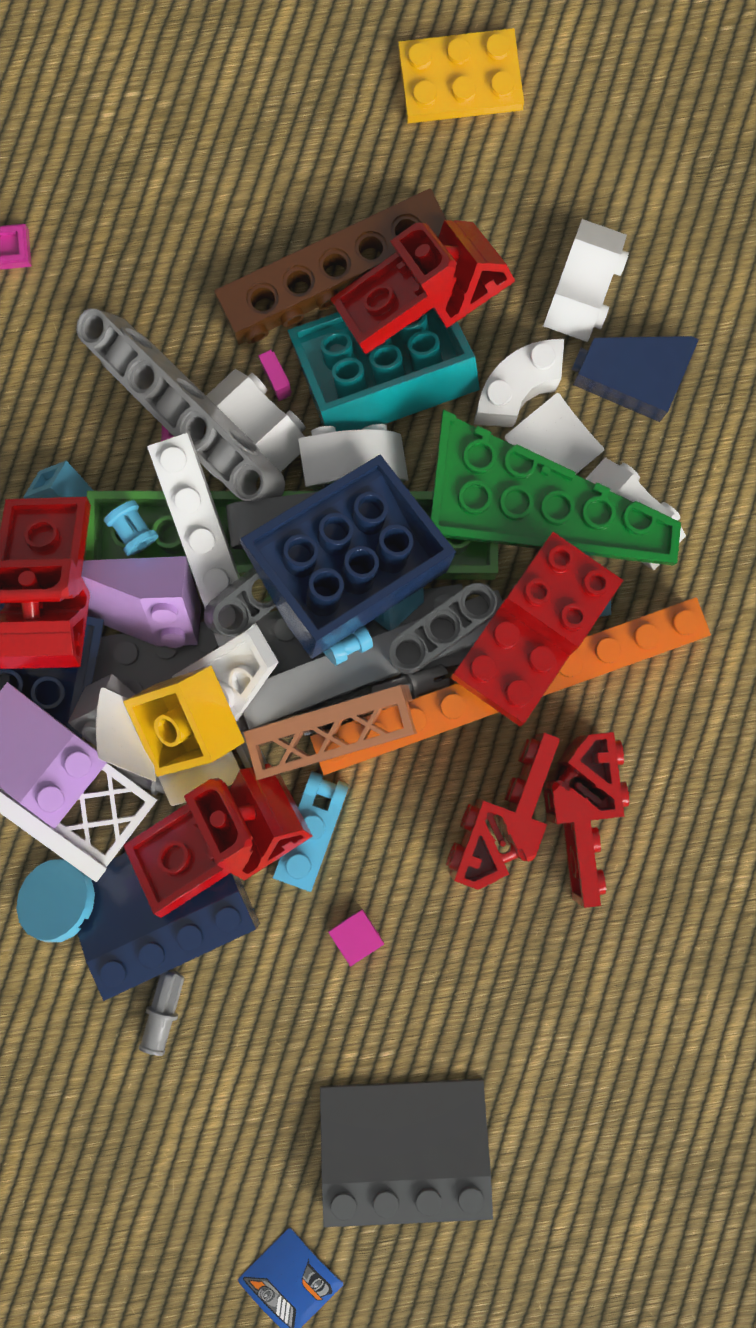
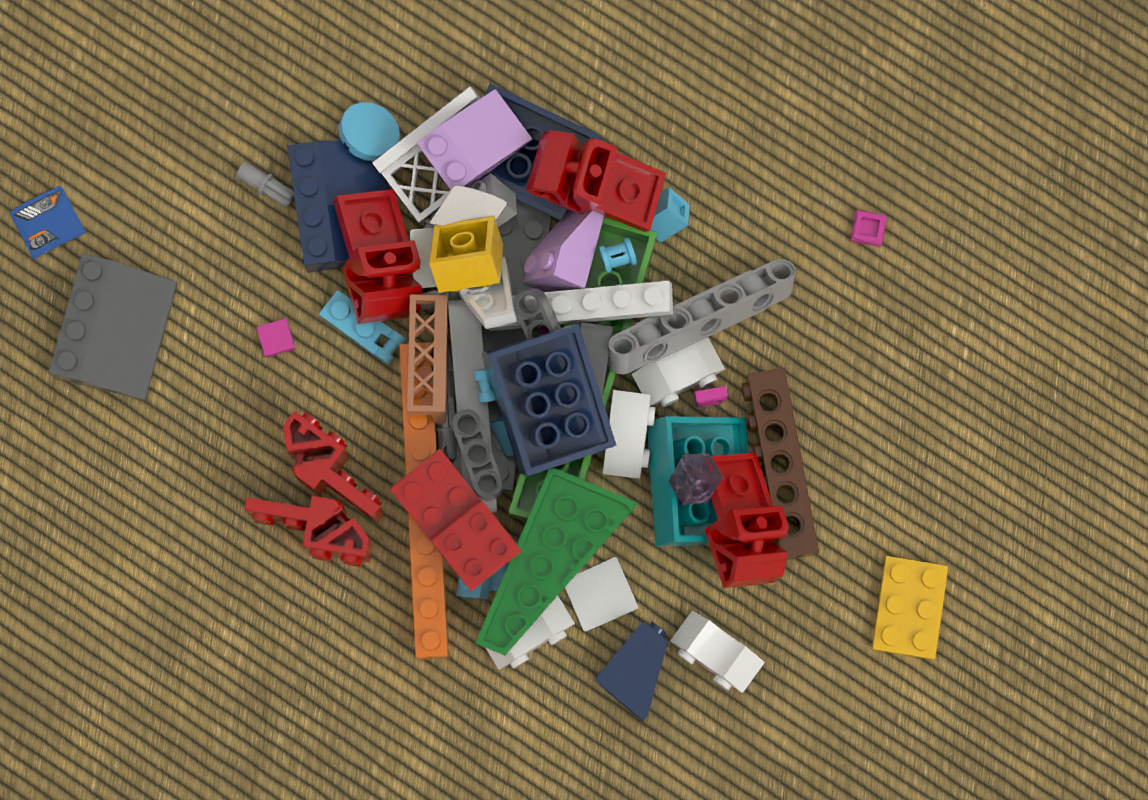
camera: 105 degrees right, 5 degrees down
(391, 346) = (695, 478): none -> clear purple brick
(517, 379) = (653, 575): white brick -> none

